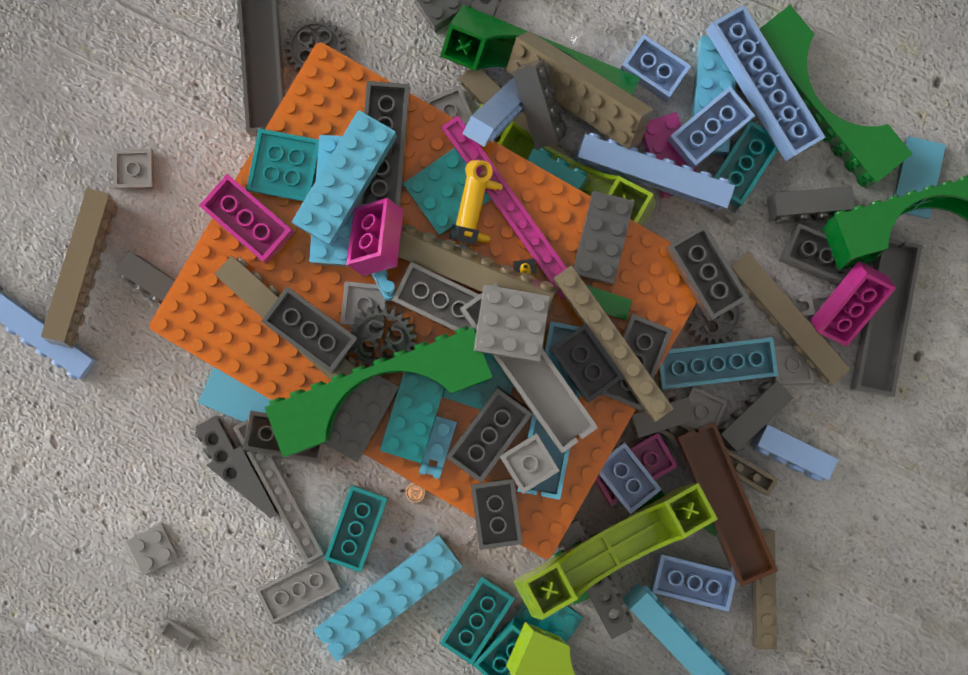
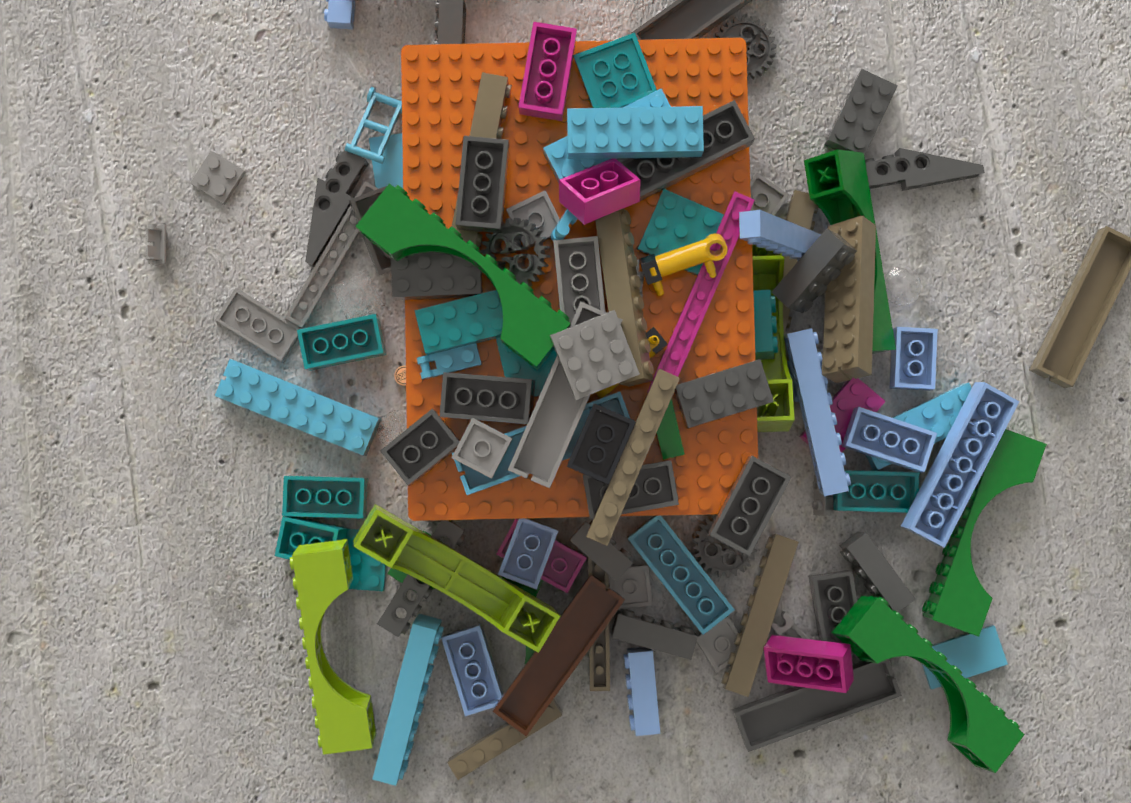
camera: 65 degrees right, 0 degrees up
(165, 379) = (372, 97): none -> medium azure piece

